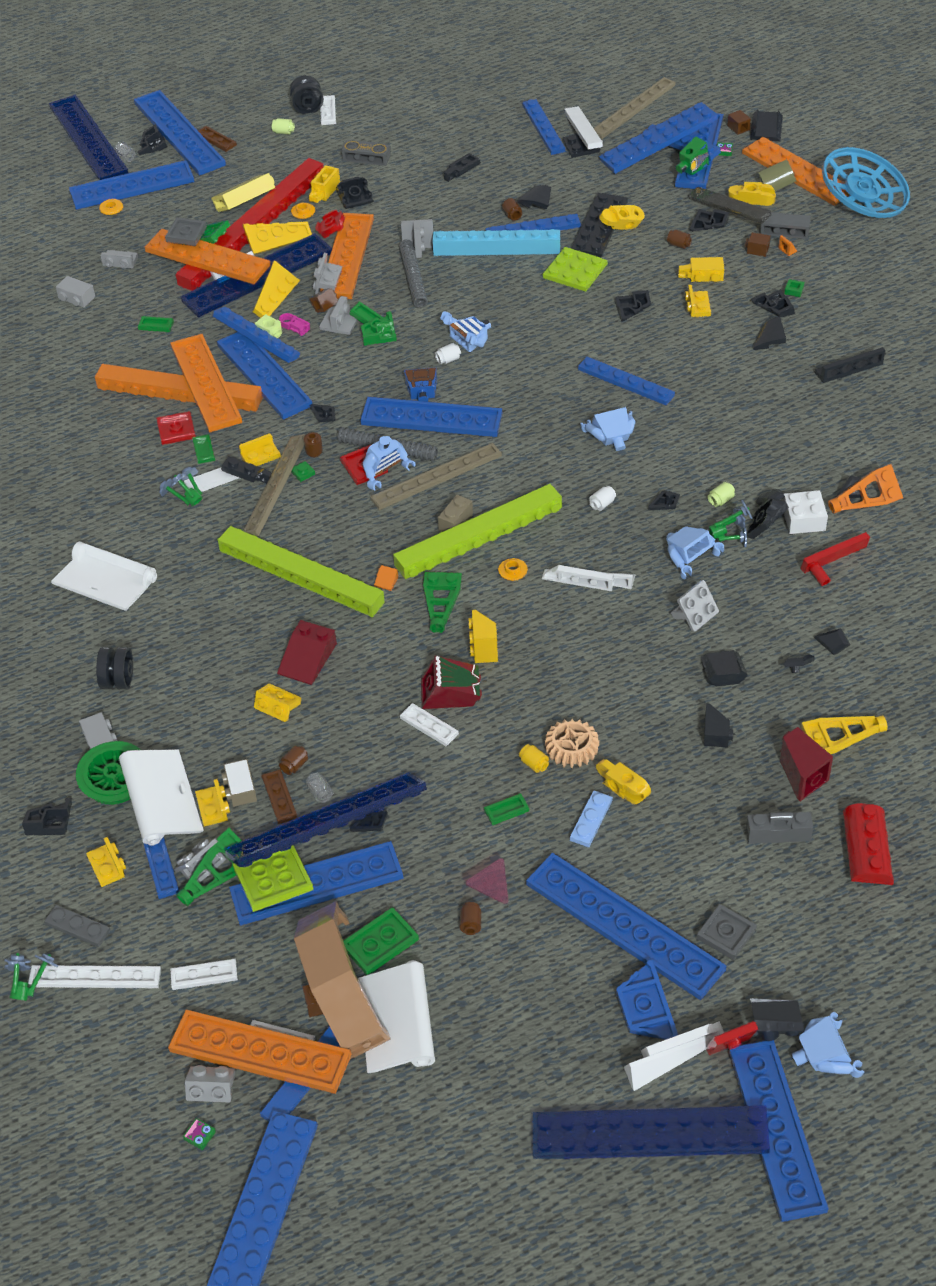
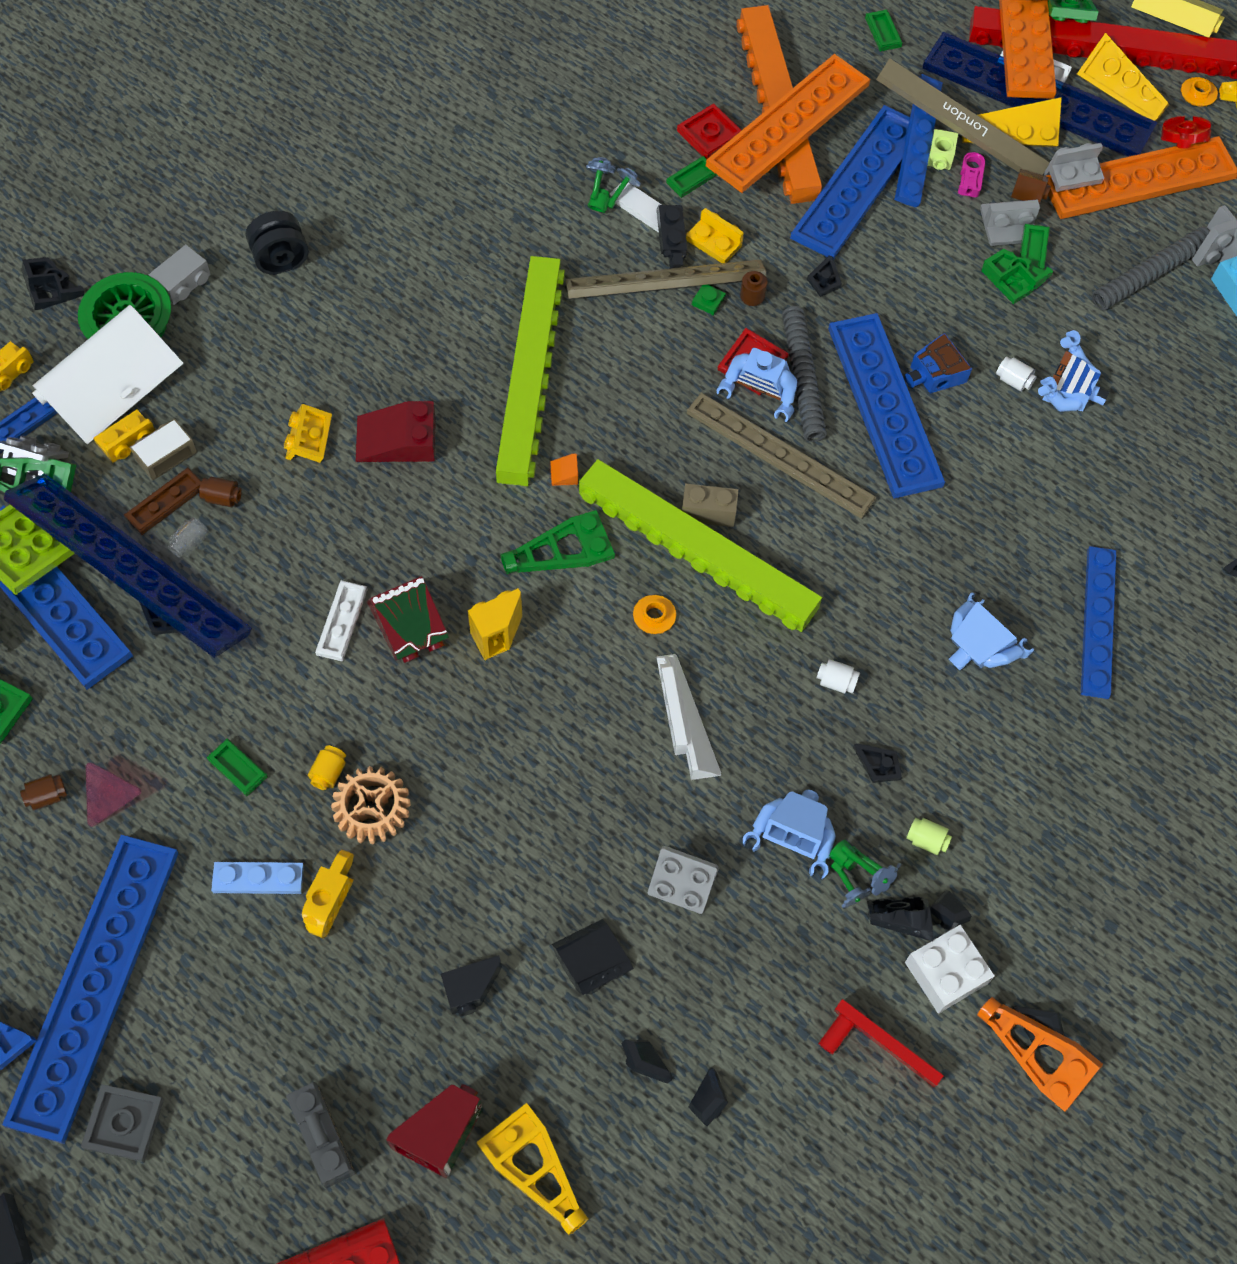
camera: 60 degrees right, 15 degrees up
(105, 576) = (433, 174): white door -> none
(256, 308) = (960, 119): none -> dark tan tile

